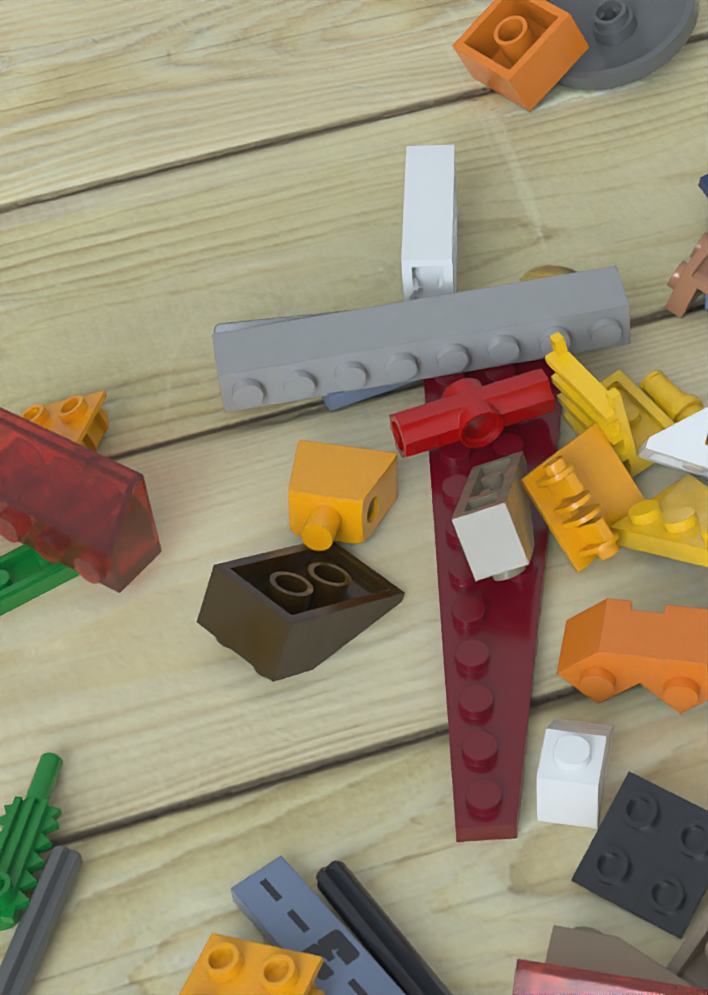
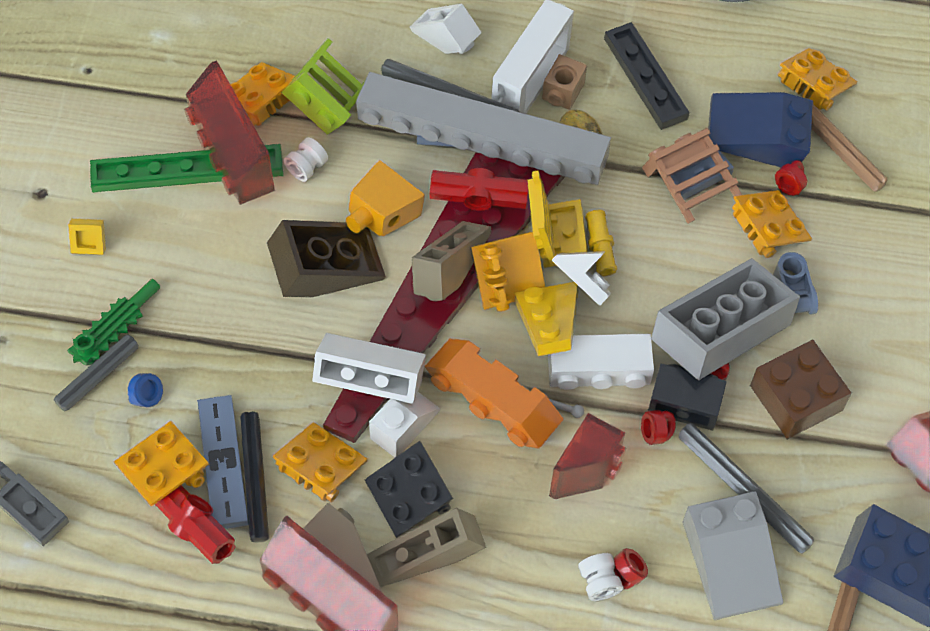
camera: 20 degrees right, 15 degrees up
(135, 914) = (145, 390): none -> blue tile
(155, 395) = (314, 100): none -> lime plate
(182, 492) = (305, 159): none -> white wheel
(277, 255) = (447, 28): none -> white slope
(485, 702) = (368, 367): none -> white brick
(487, 250) = (565, 72): none -> medium nougat brick
(488, 879) = (319, 461): none -> light orange hinge
(591, 201) = (646, 75): none -> black plate

